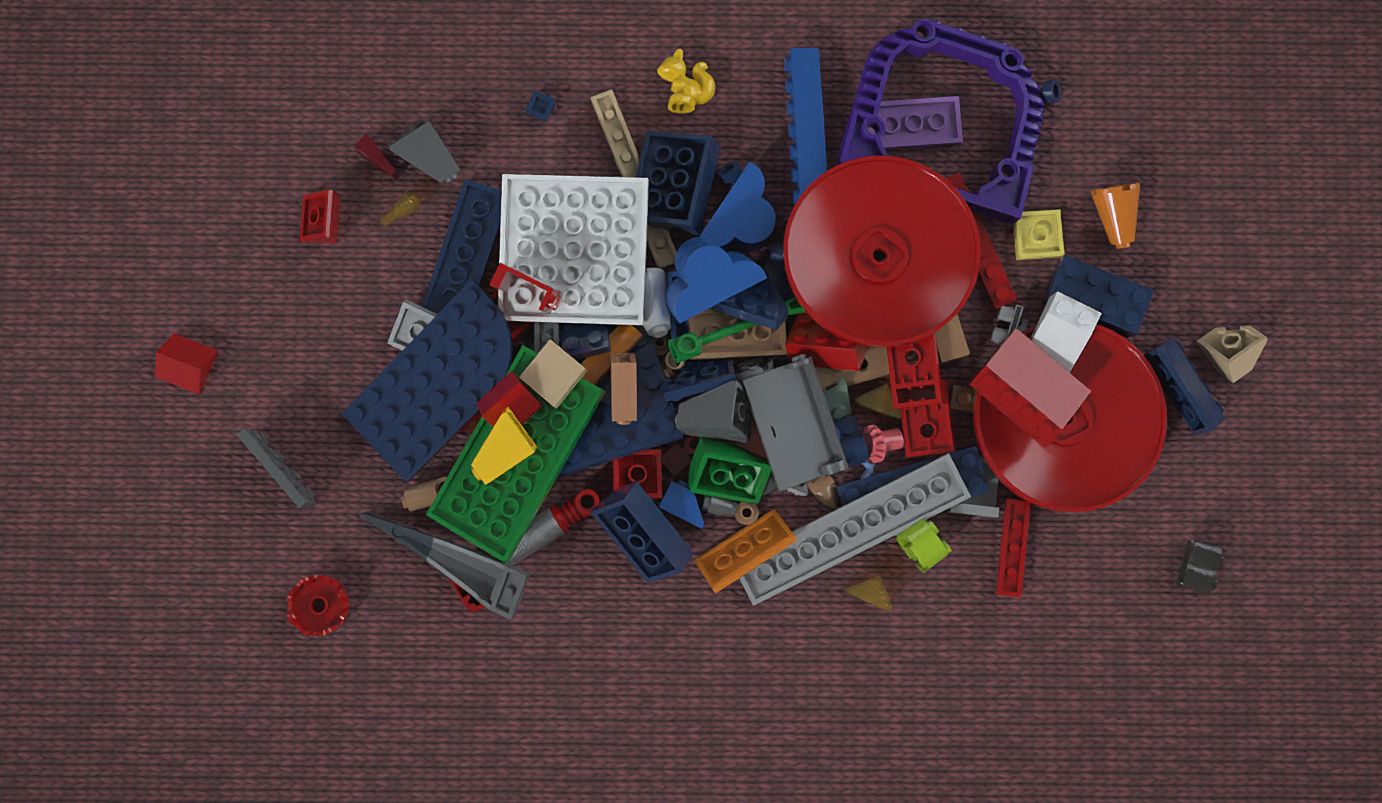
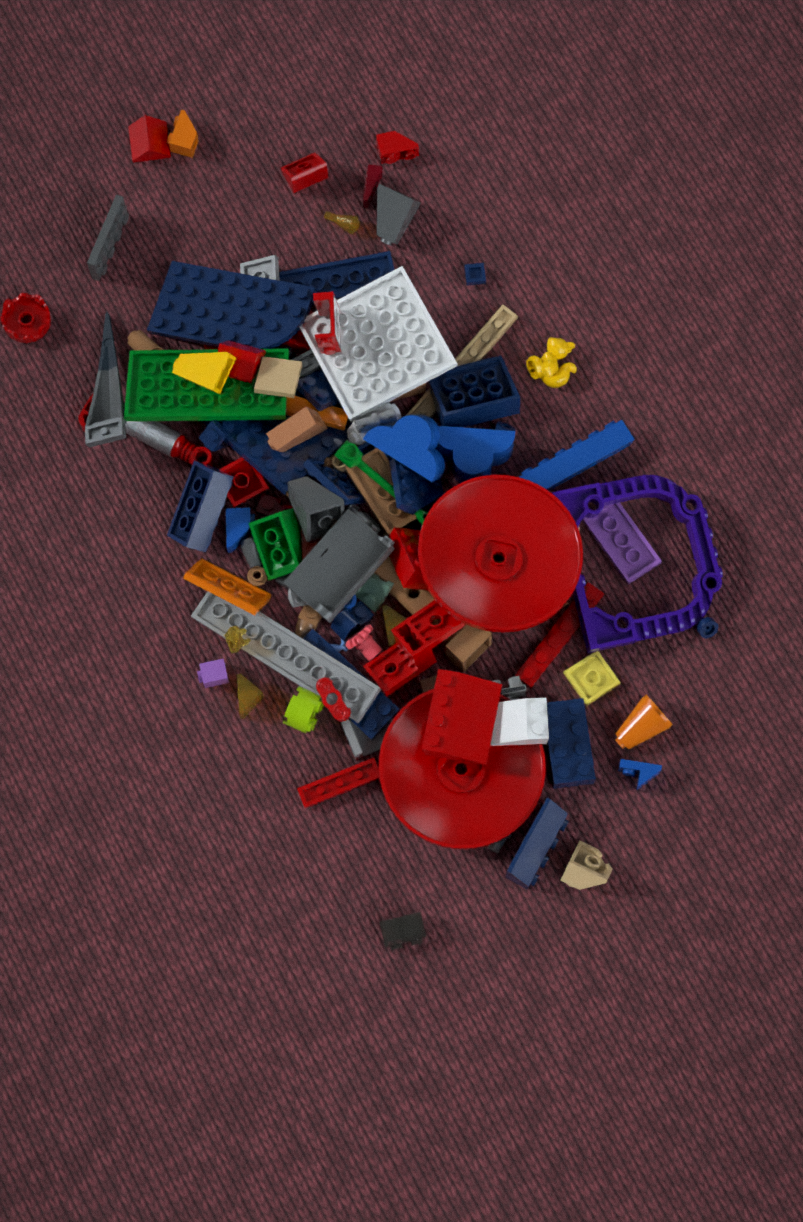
camera: 65 degrees right, 10 degrees down
(204, 322) = (184, 136): none -> orange slope
(348, 108) = (395, 146): none -> red slope
(576, 477) = (214, 436): none -> dark blue bracket
(659, 298) = (375, 420): none -> light grey pin
(810, 574) = (235, 640): none -> clear yellow tile
(828, 615) = (213, 673): none -> medium lavender brick
(918, 509) = (339, 709): none -> red piece
(1166, 239) = (644, 770): none -> blue slope

